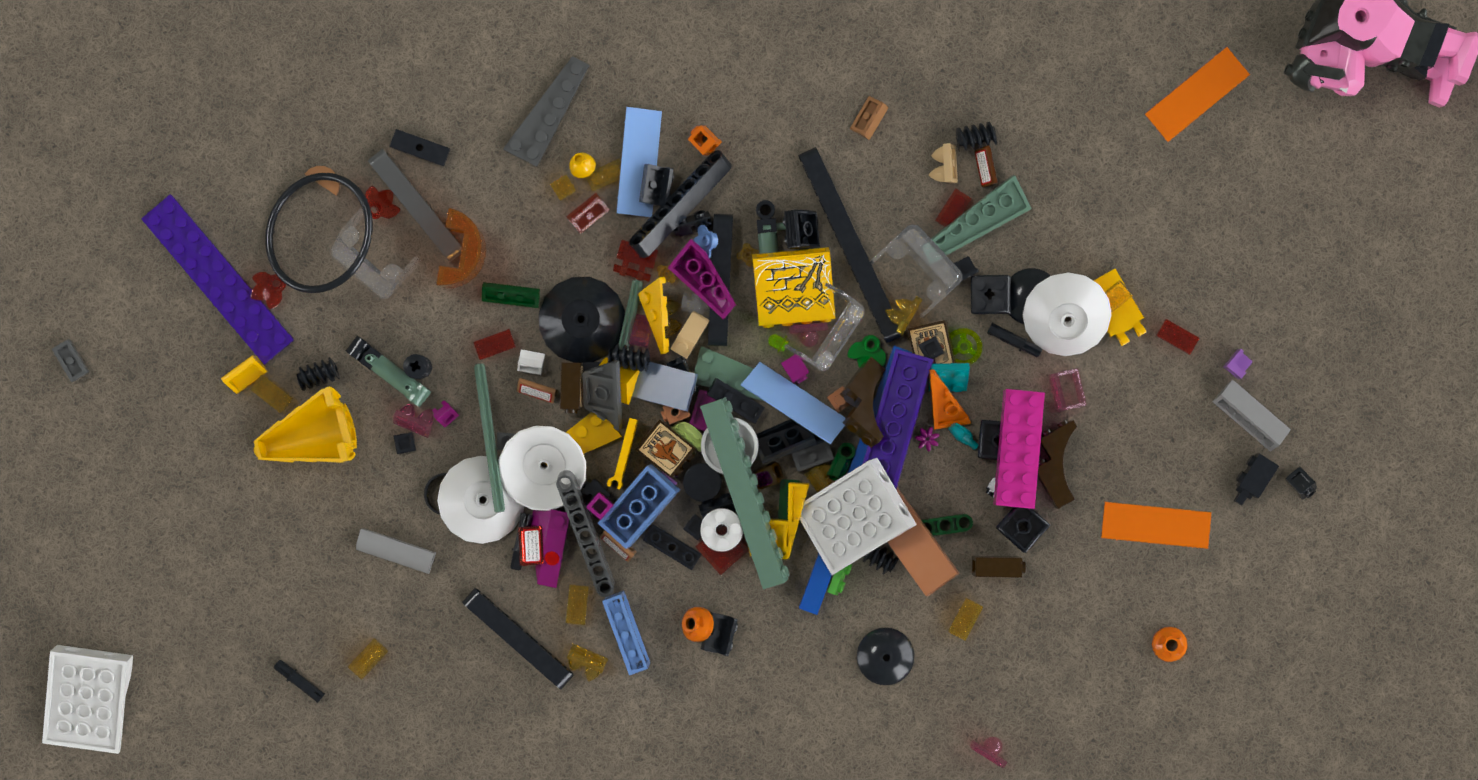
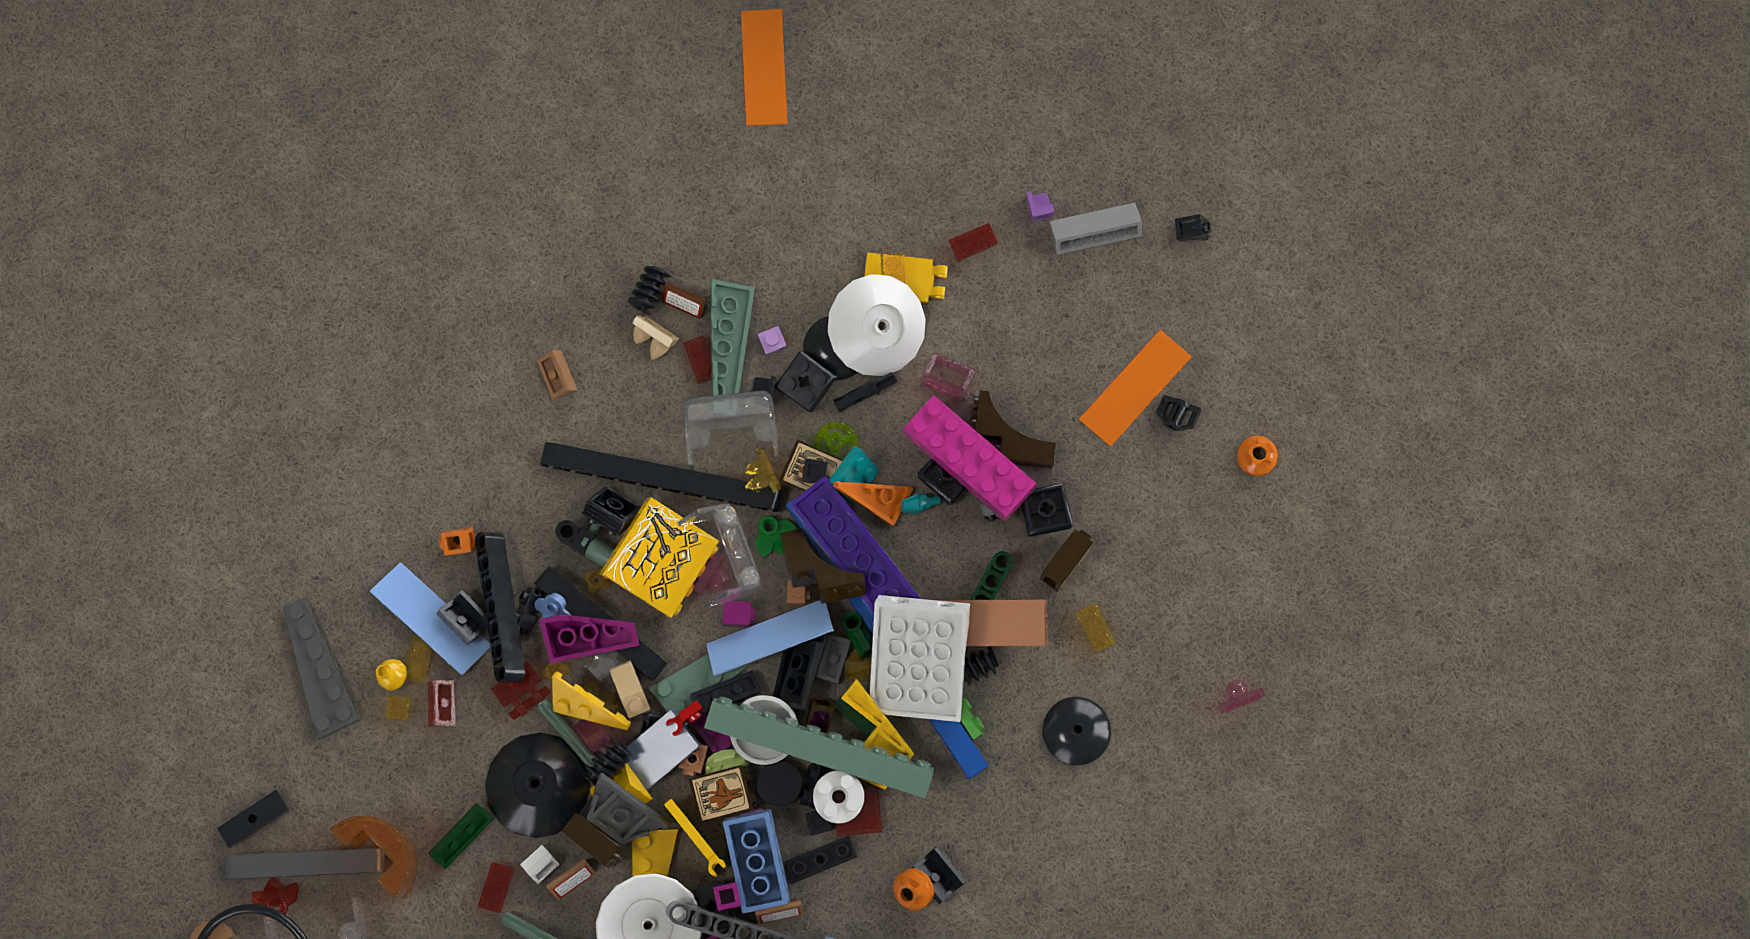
camera: 55 degrees left, 10 degrees down
(703, 390) = (689, 714): none -> red plate
(778, 342) = (700, 611): clear neon green hinge -> none
(931, 441) = (899, 534): magenta plant -> none
(1003, 248) = (772, 340): none -> lavender plate
(1159, 568) = (1178, 413): none -> black piece
(1255, 478) = (1156, 266): black hinge -> none

